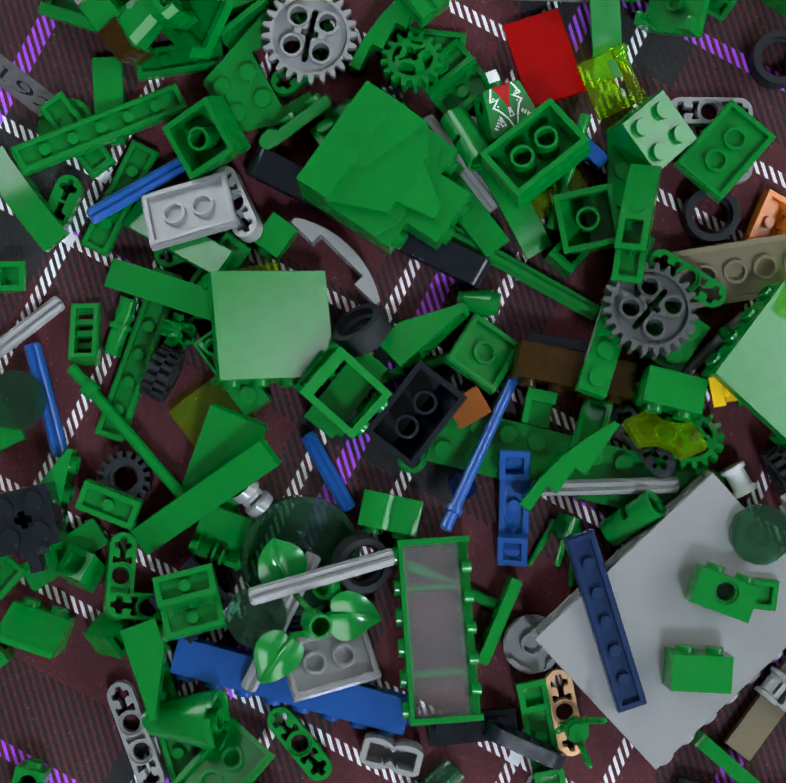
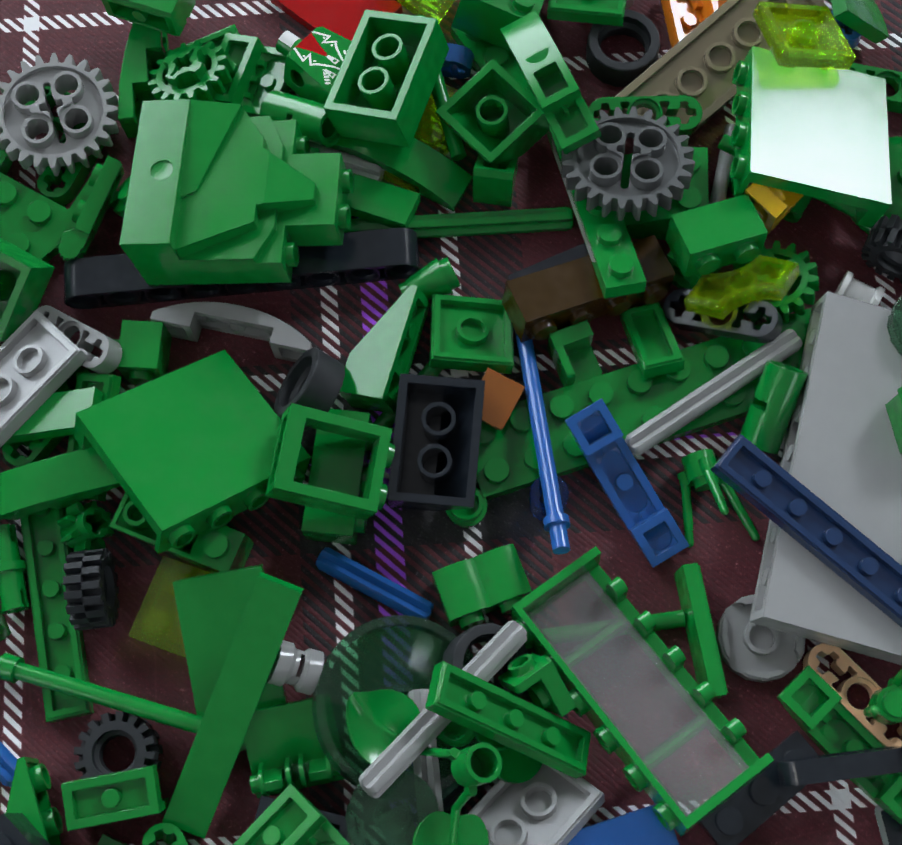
camera: 25 degrees left, 15 degrees down
(352, 606) = (508, 720): none -> green tile
(385, 592) = (541, 681): none -> green bracket
(576, 459) = (661, 376): green slope -> none

